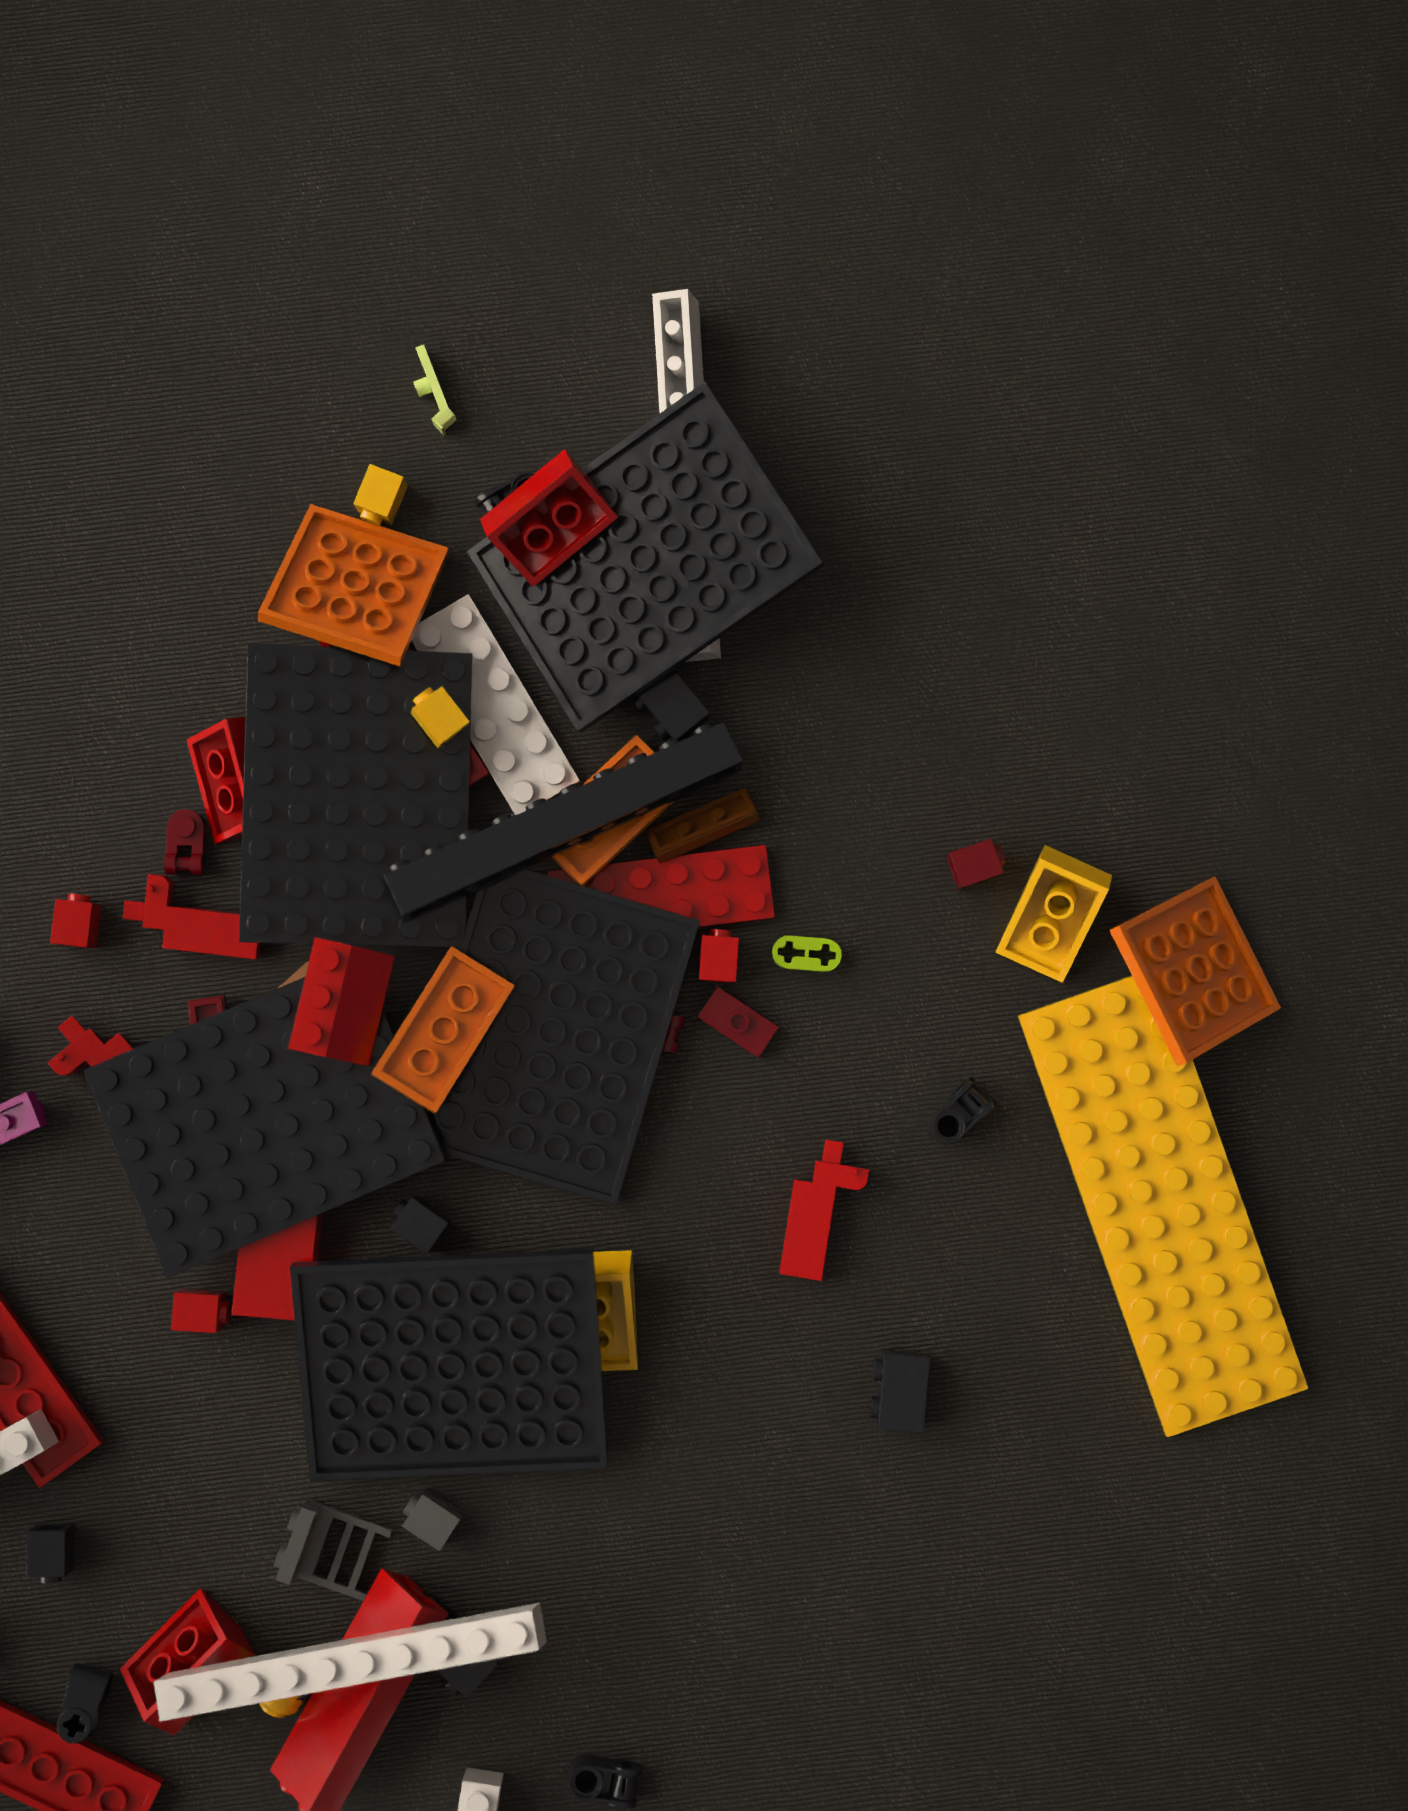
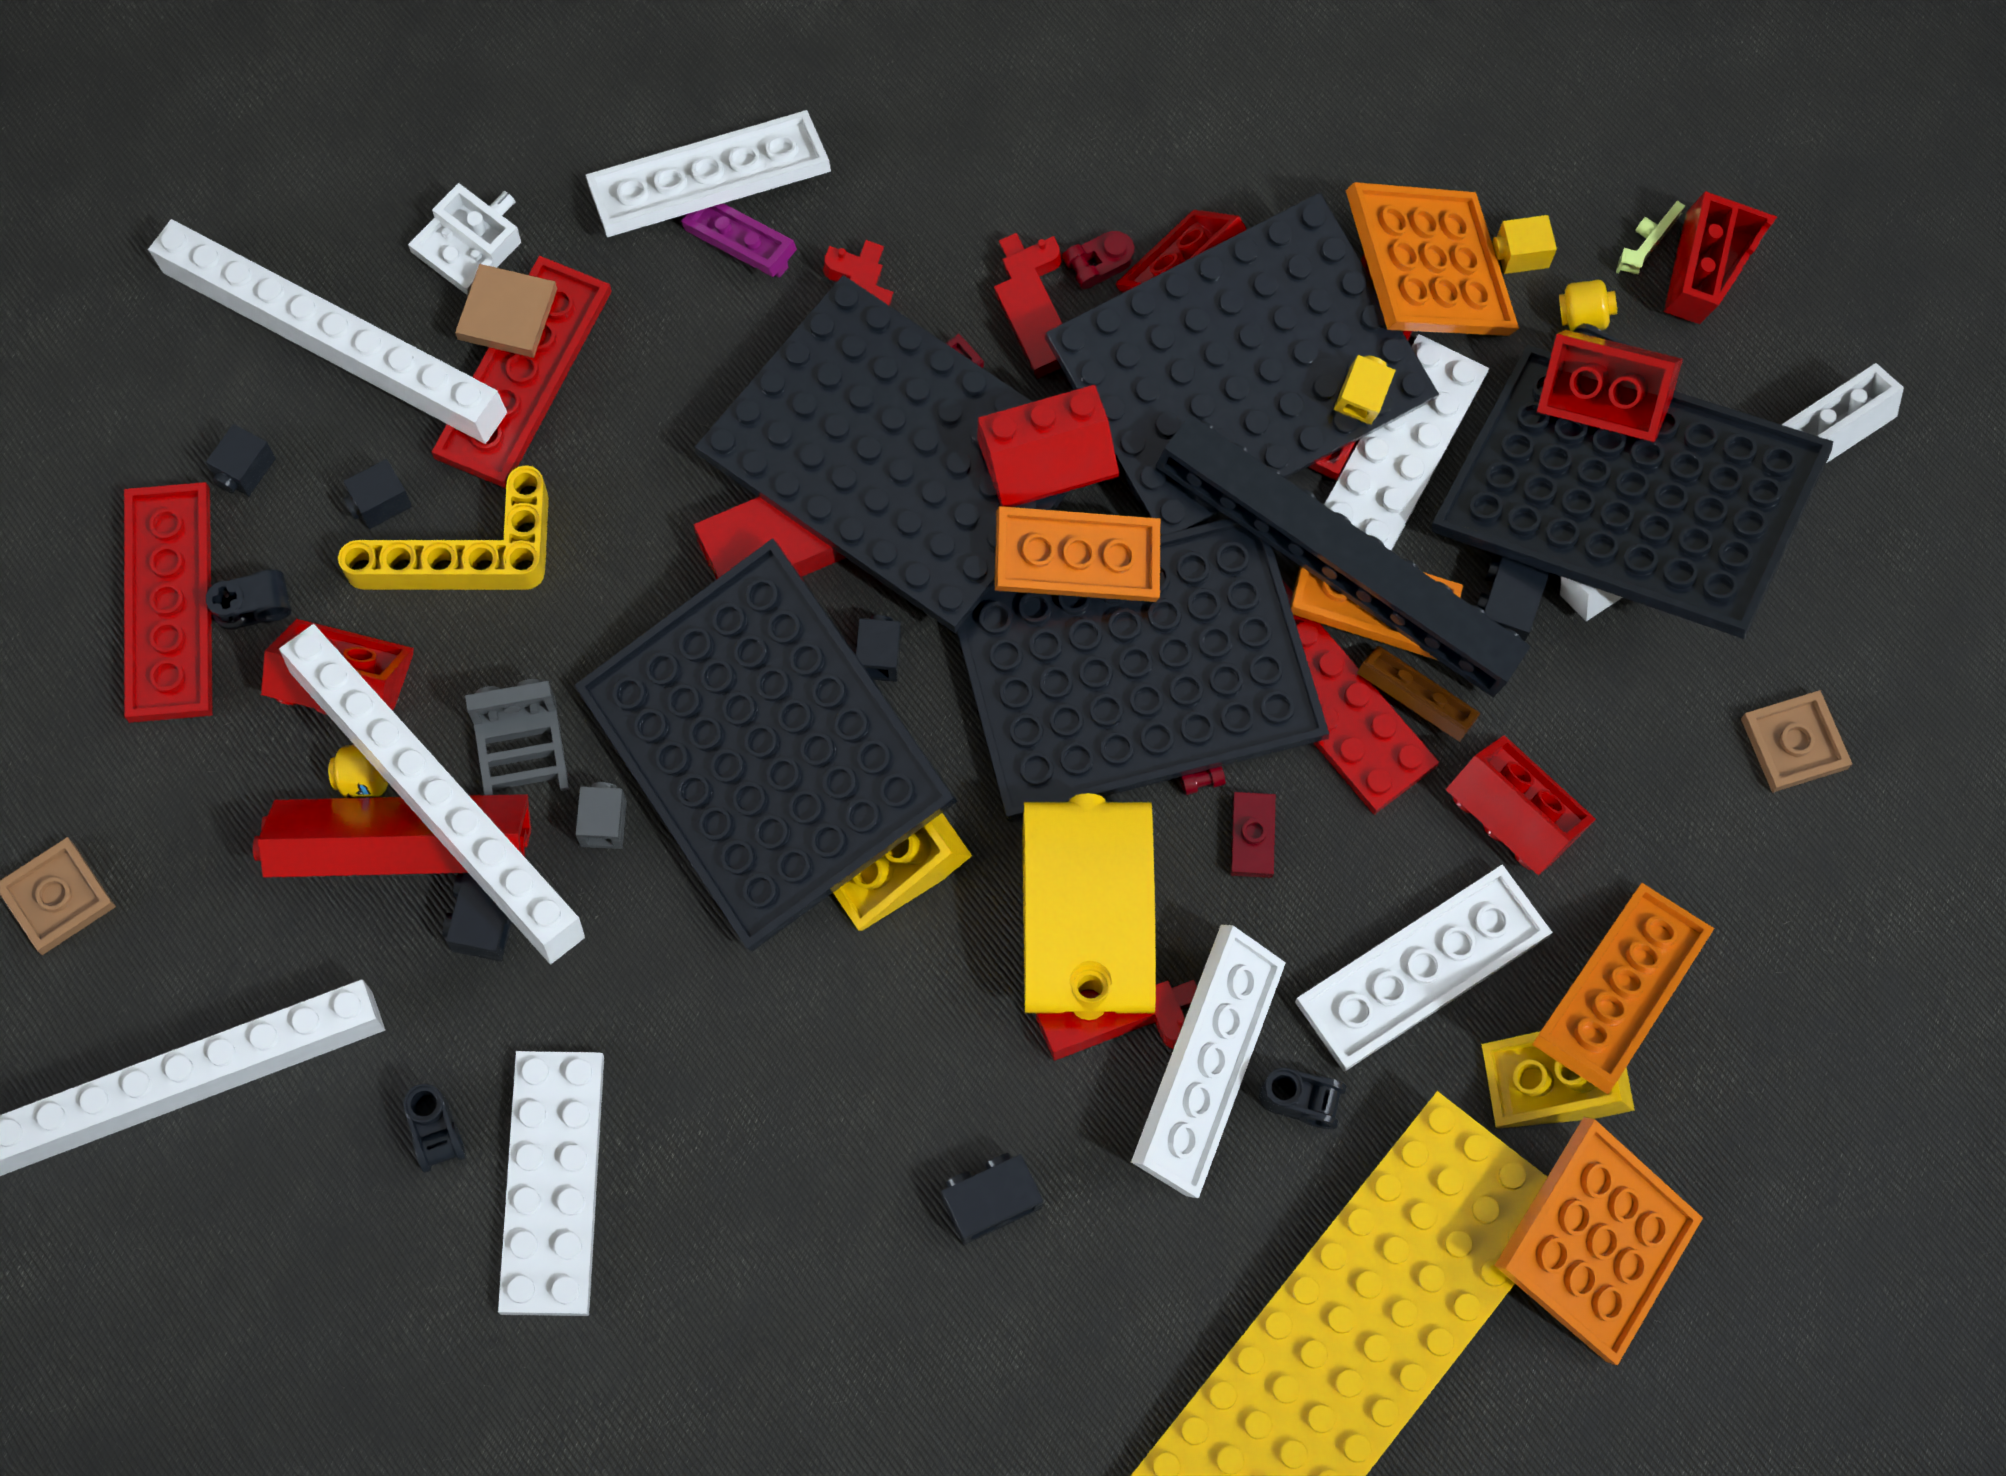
camera: 60 degrees right, 15 degrees down
(76, 922) = (970, 204): red brick -> none
(148, 1510) = (462, 553): none -> yellow beam
(200, 1311) = (677, 499): red brick -> none
(463, 481) = (1588, 304): none -> yellow head
(480, 355) = (1711, 254): none -> red wedge
(697, 1710) = (551, 1184): none -> white plate
(719, 957) = (1303, 778): red brick -> none
(727, 1191) = (1088, 906): none -> yellow panel
(806, 944) = (1369, 857): lime beam -> none
(835, 804) = (1519, 805): none -> red slope
(896, 1169) = (1208, 1062): none -> white plate
(906, 560) = (1796, 741): none -> medium nougat tile
(915, 959) = (1423, 967): none -> white plate
(976, 863) = (1552, 969): dark red brick -> none
(1027, 830) = (1623, 988): none -> orange plate

